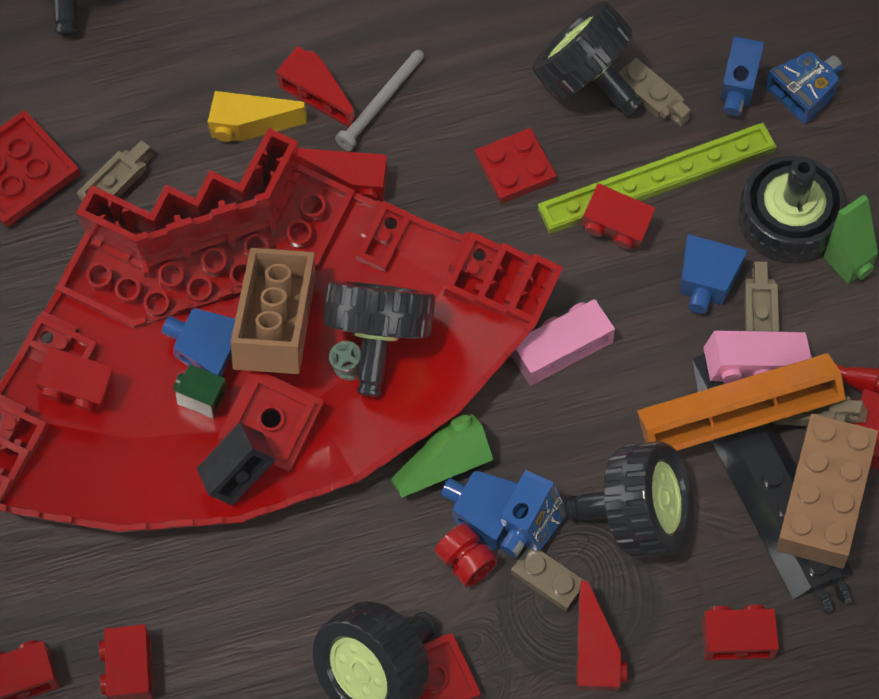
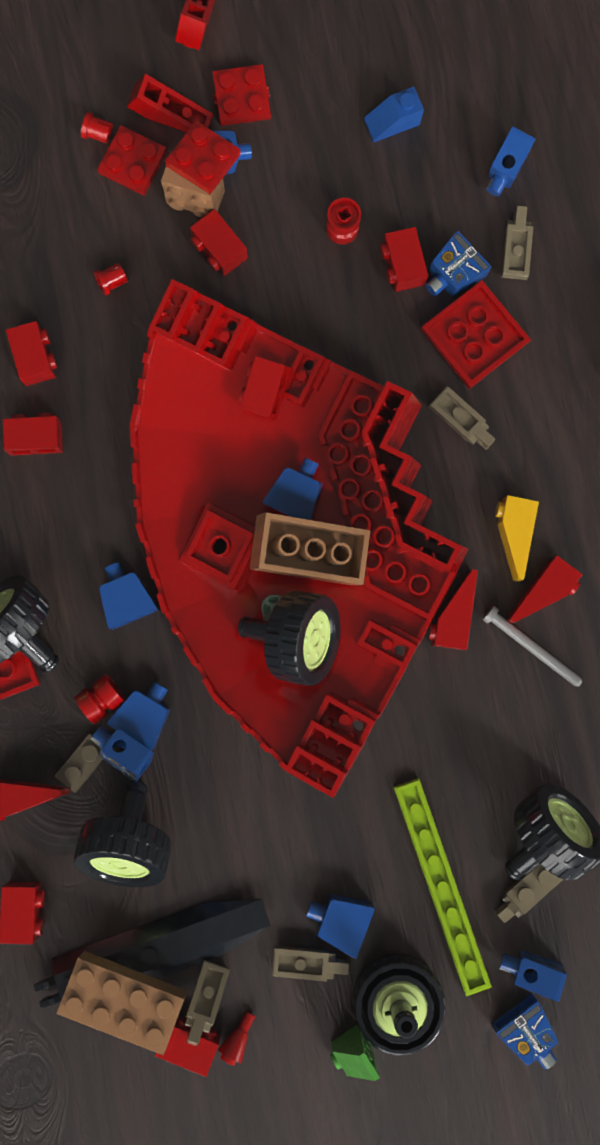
camera: 80 degrees right, 20 degrees up
(200, 390) = (254, 488): dark green brick -> none
(236, 464) = (176, 517): black brick -> none
(338, 536) = (125, 597): none -> blue torso
(446, 454) = (183, 684): bright green slope -> none
(515, 165) = (459, 761): red plate -> none
(563, 341) = (285, 794): bright pink brick -> none
(616, 217) = (397, 847): red brick -> none
(744, 403) = (206, 940): orange brick -> none
(748, 353) = (254, 957): bright pink brick -> none

